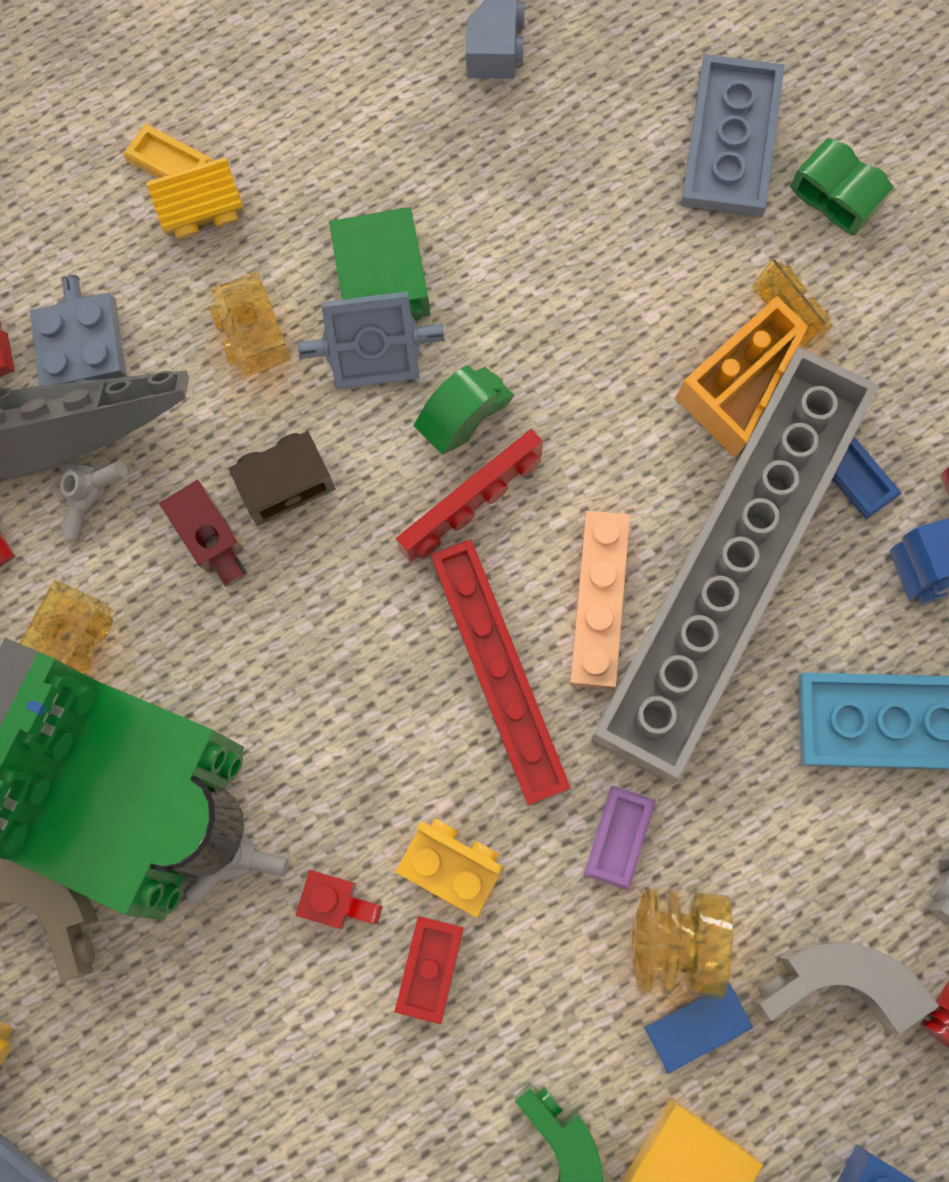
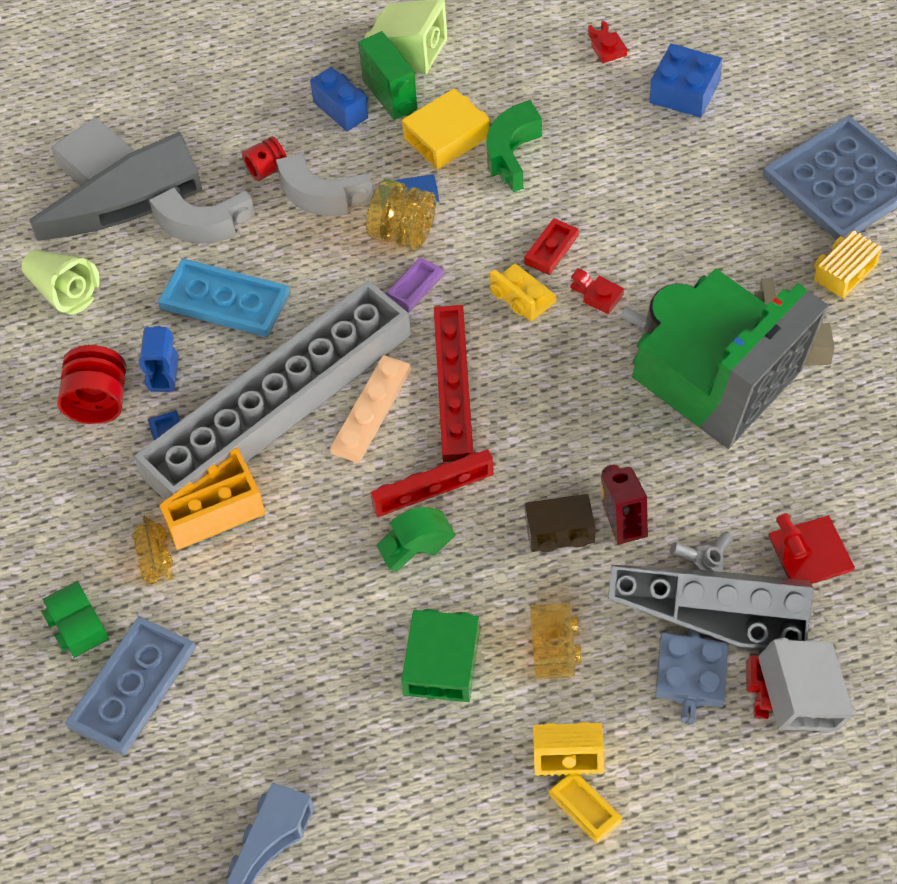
camera: 165 degrees left, 20 degrees down
(63, 609) = (735, 485): clear yellow brick -> none
(371, 340) = (464, 594): sand blue plate -> none

